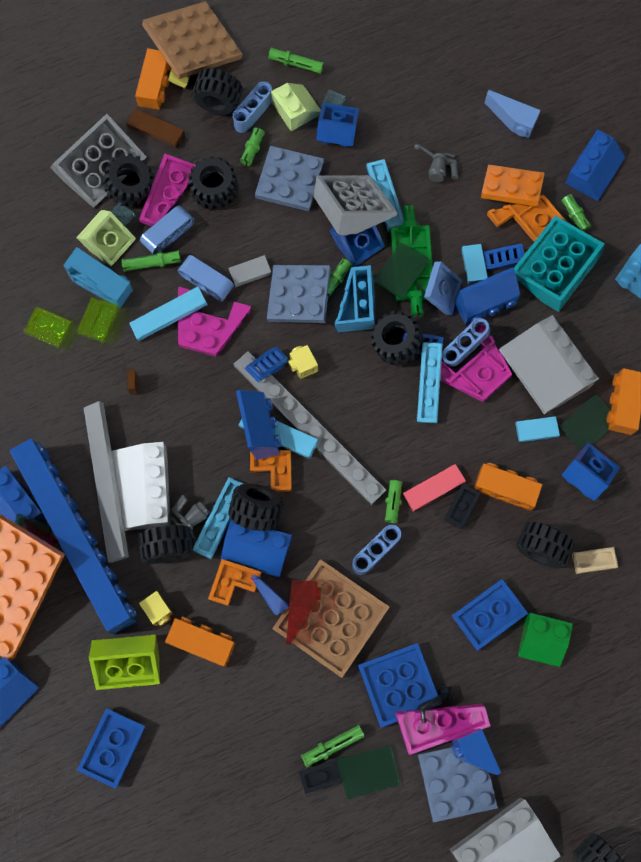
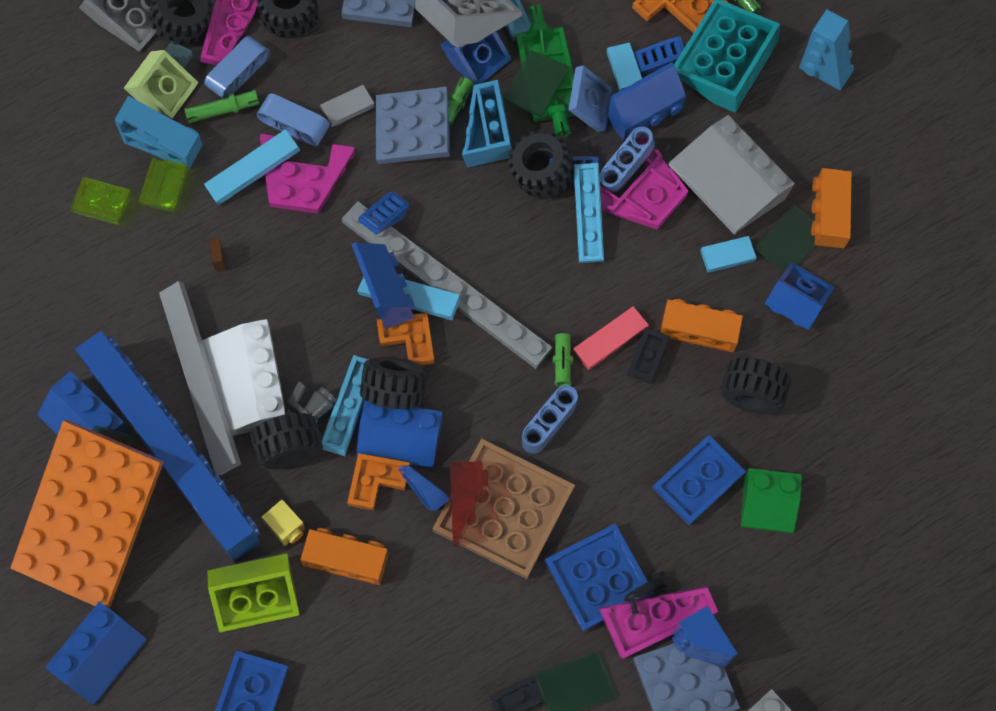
camera: 10 degrees left, 5 degrees down
(302, 361) = (428, 206): light yellow brick -> none
(351, 736) = (499, 678): bright green pin -> none
(595, 560) = (819, 401): tan tile -> none

